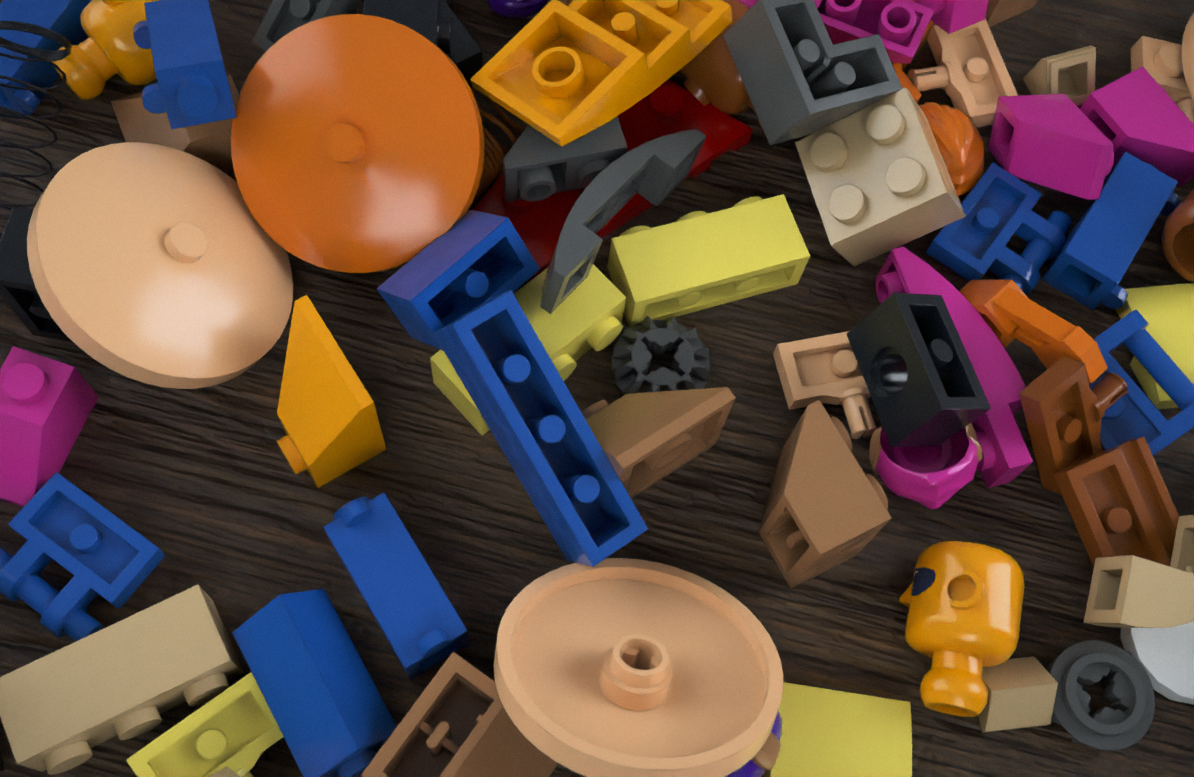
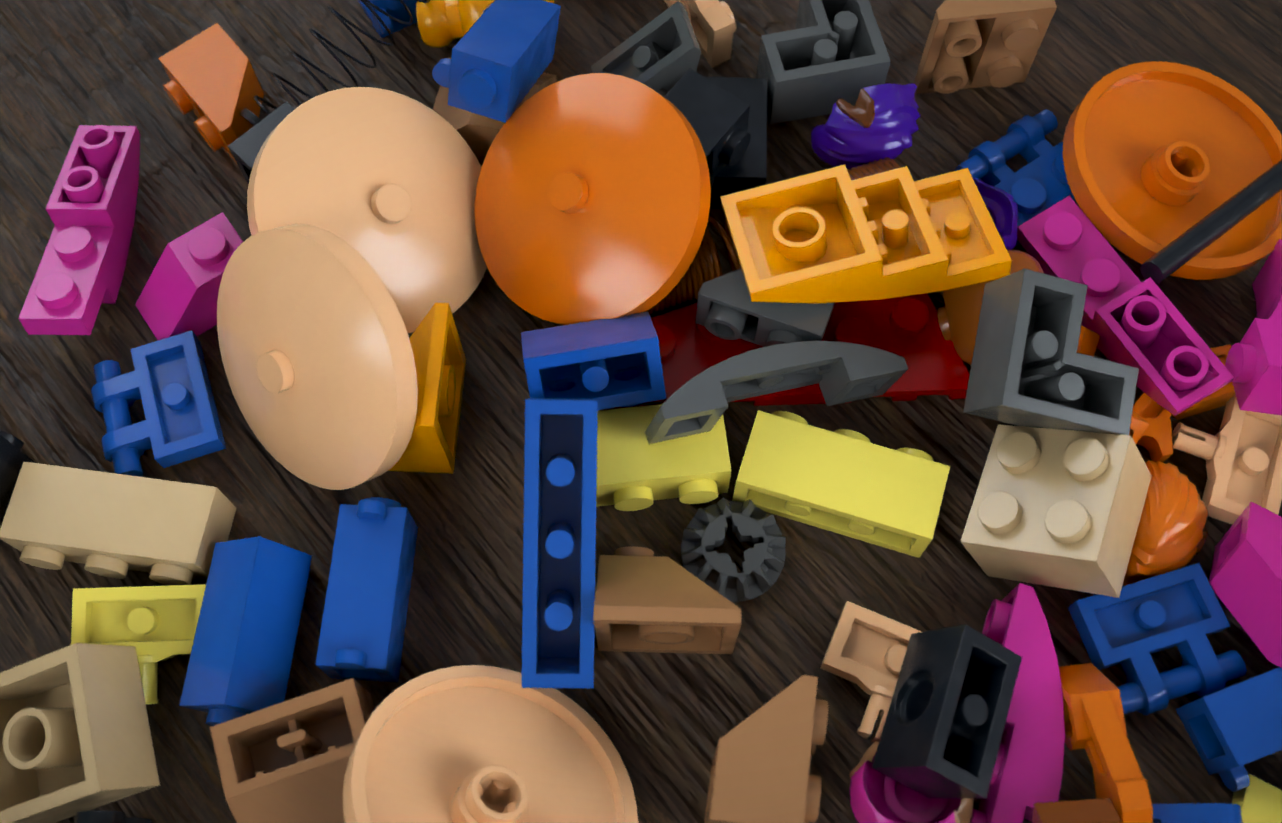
camera: 45 degrees right, 0 degrees up
(215, 410) = (317, 356): none -> light nougat dish

